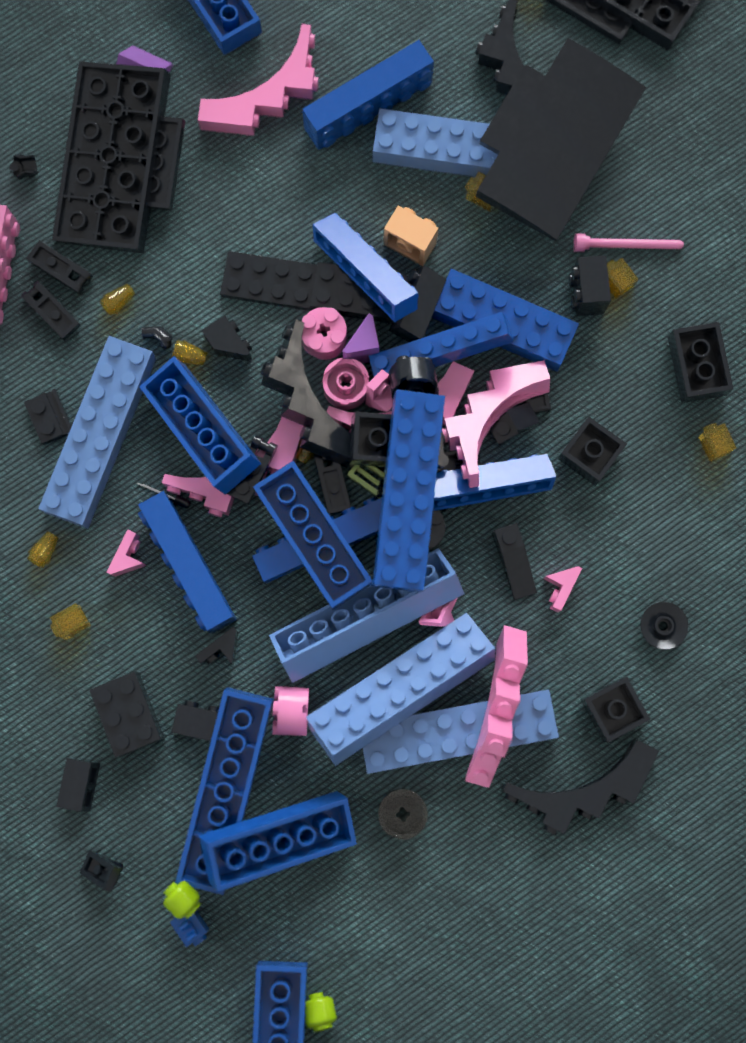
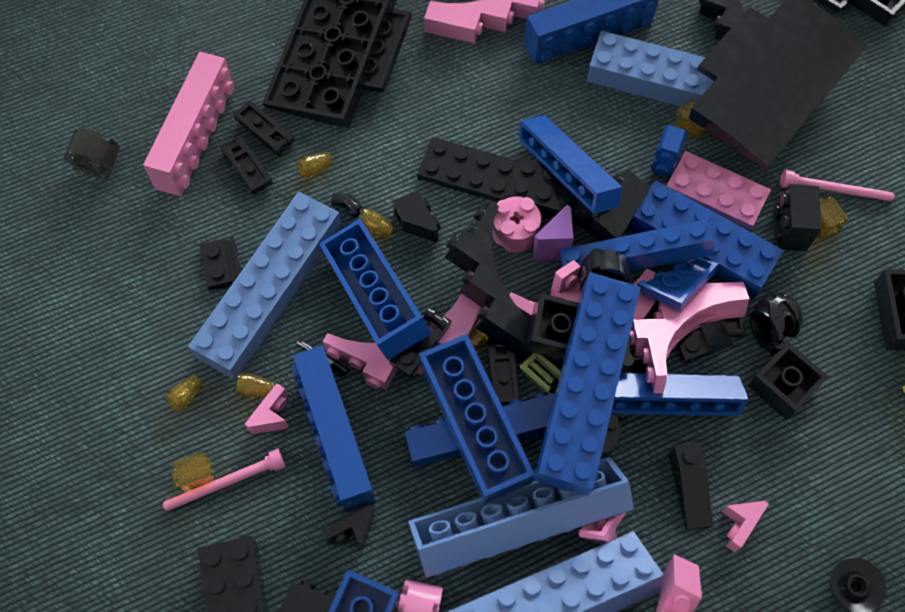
camera: 10 degrees right, 15 degrees down
(23, 166) = (250, 36): black arm -> none
(106, 533) = (253, 385): none -> clear yellow cone
(138, 600) = (273, 461): none -> bright pink piece
(345, 370) = (531, 272): bright pink brick -> none
(410, 235) = (617, 144): light nougat brick -> none
(461, 234) = (668, 151): none -> blue brick
(484, 374) = (681, 283): none -> blue wing
(513, 263) = (719, 189): none -> bright pink plate
(574, 390) = (779, 314): none -> black helmet

